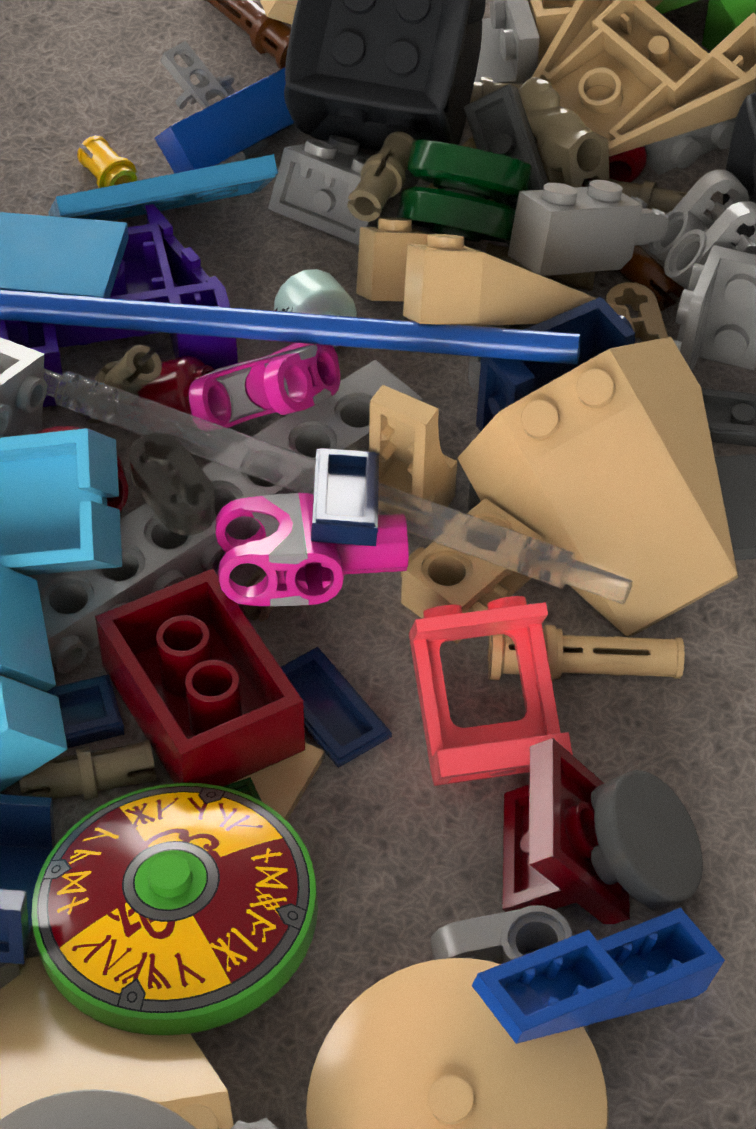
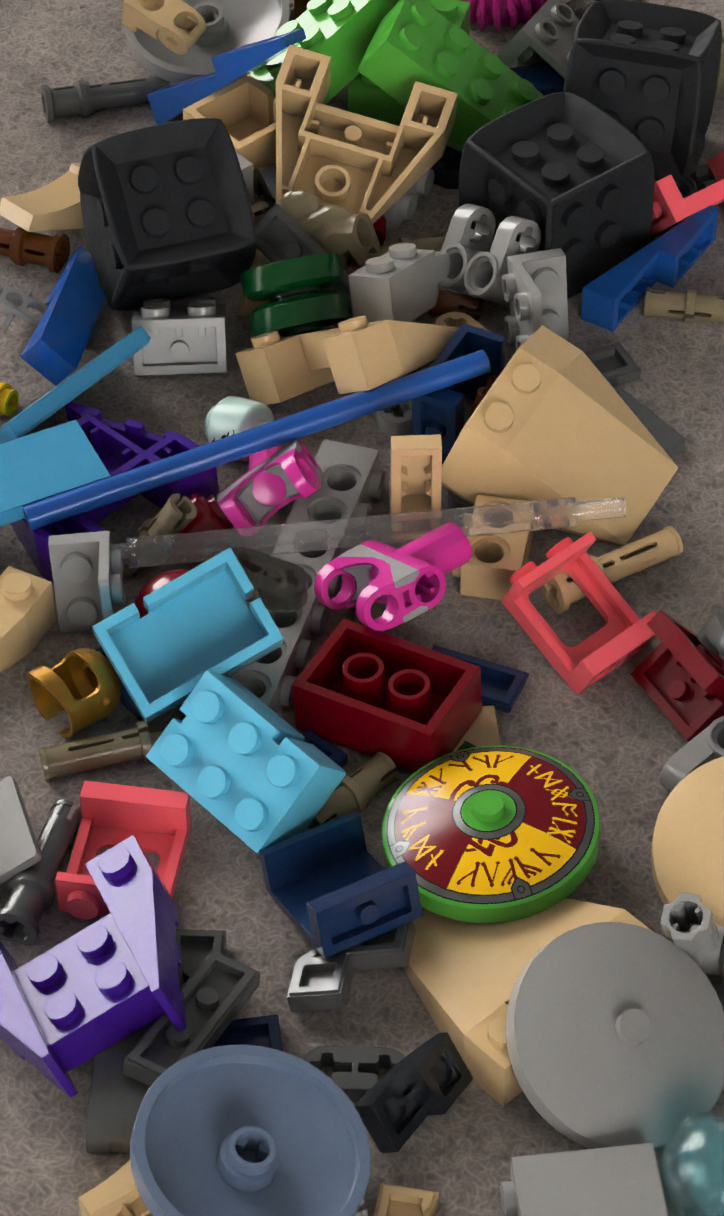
camera: 30 degrees left, 5 degrees down
(345, 497) = (406, 526): tile -> none
(381, 177) = (230, 309): dark tan pin -> none

